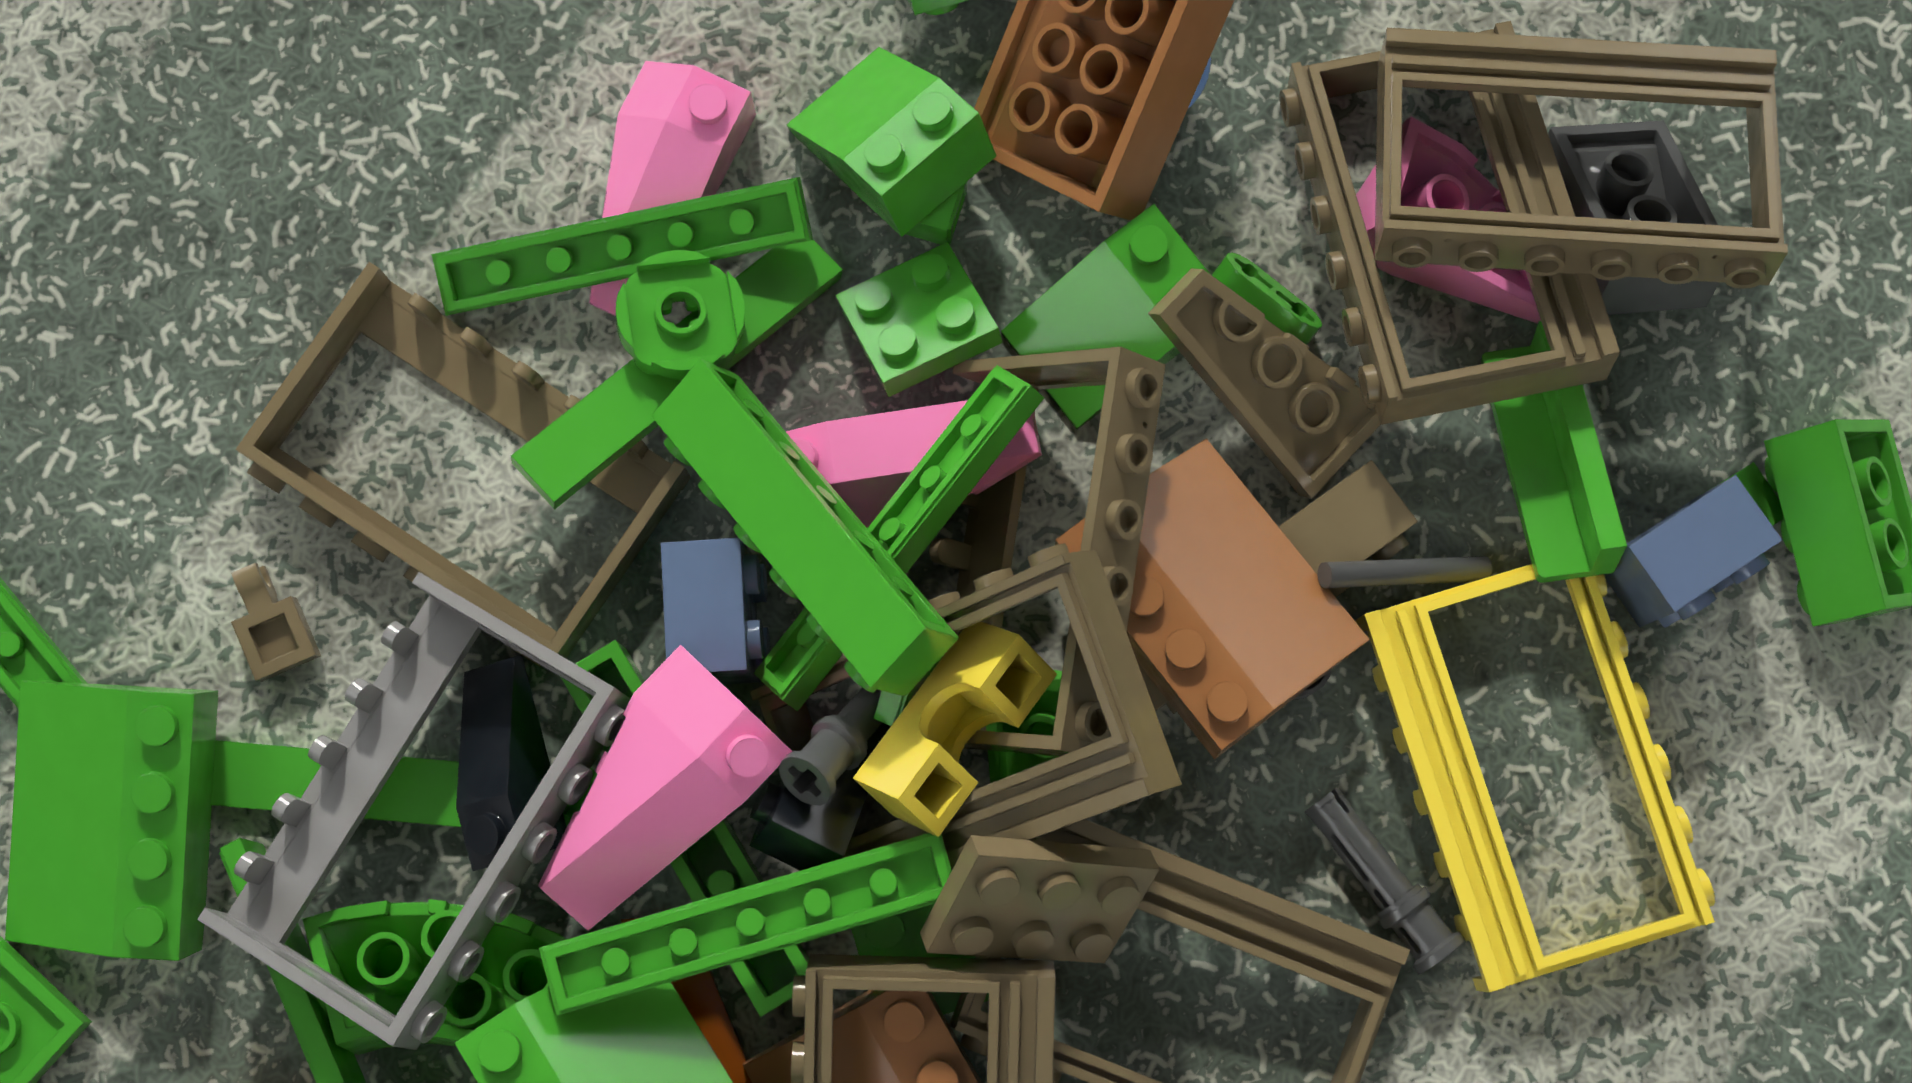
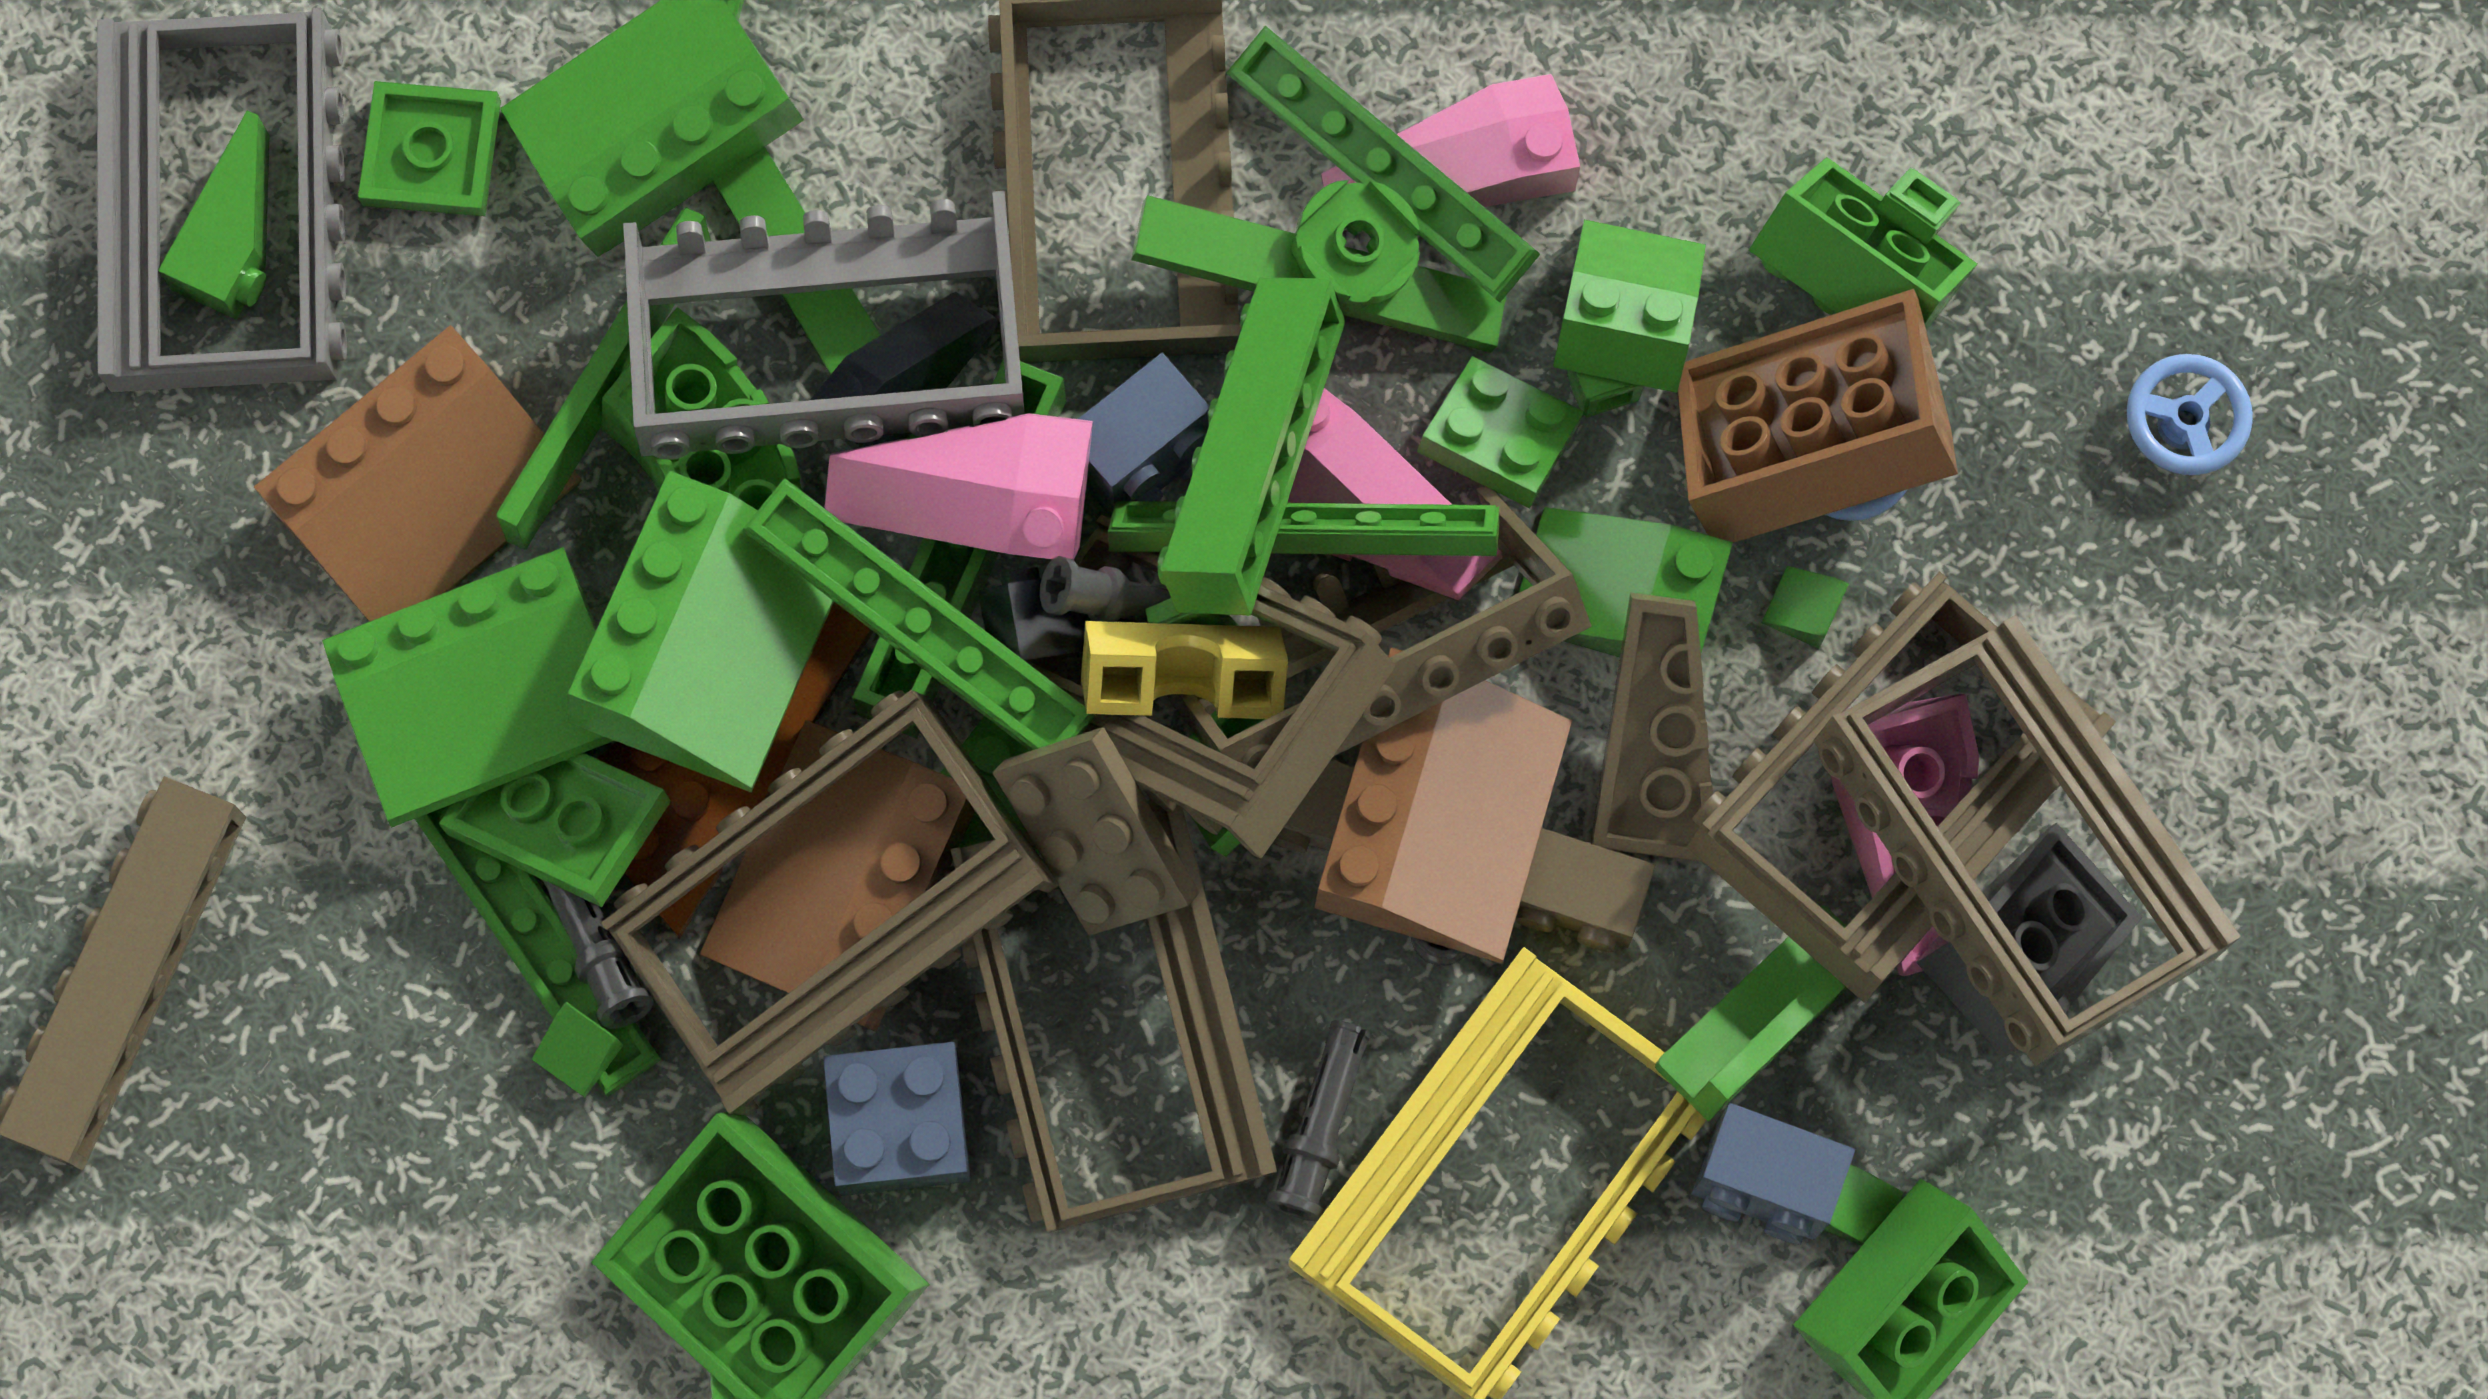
camera: 55 degrees right, 5 degrees down
(274, 631) = (881, 127): dark tan plate -> none
(1233, 187) = (1805, 605): none -> bright green slope
(1268, 296) = (1729, 693): bright green beam -> none
(1403, 571) = (1583, 956): dark grey bar -> none

